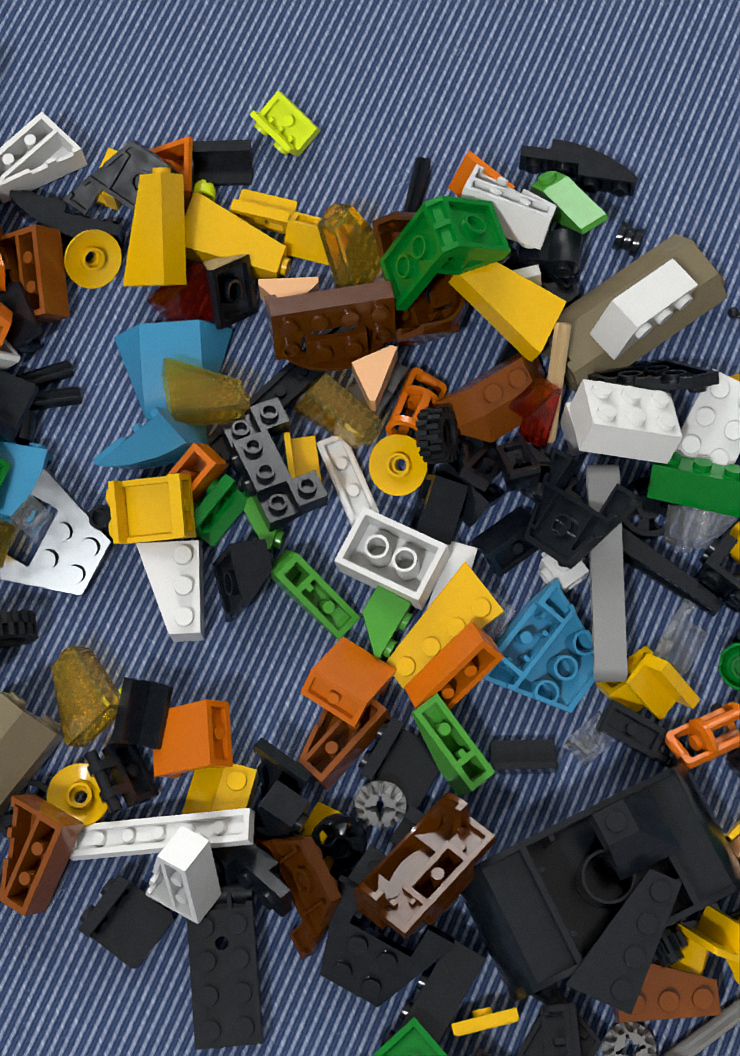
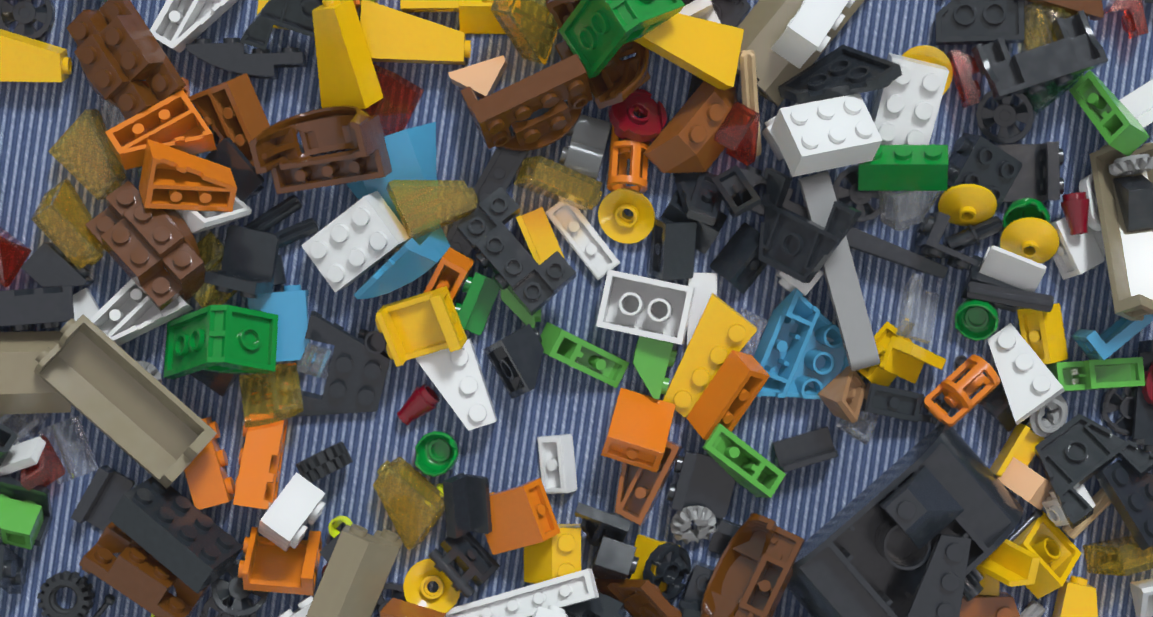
camera: 20 degrees left, 15 degrees up
(101, 267) = (294, 92): yellow dish -> none
(109, 411) = (356, 241): none -> white brick
(124, 317) = (322, 132): none -> reddish brown piece
(127, 599) = (418, 404): none -> dark red cone
(128, 653) = (436, 453): none -> green hair
(230, 289) = (424, 90): black slope -> none
(253, 702) = (557, 463): none -> white slope
(374, 374) = (583, 142): light nougat slope -> none
(437, 435) = (657, 185): black tyre -> none
(442, 380) = (634, 128): none -> dark red plate
(580, 706) = (844, 395): none -> medium nougat slope

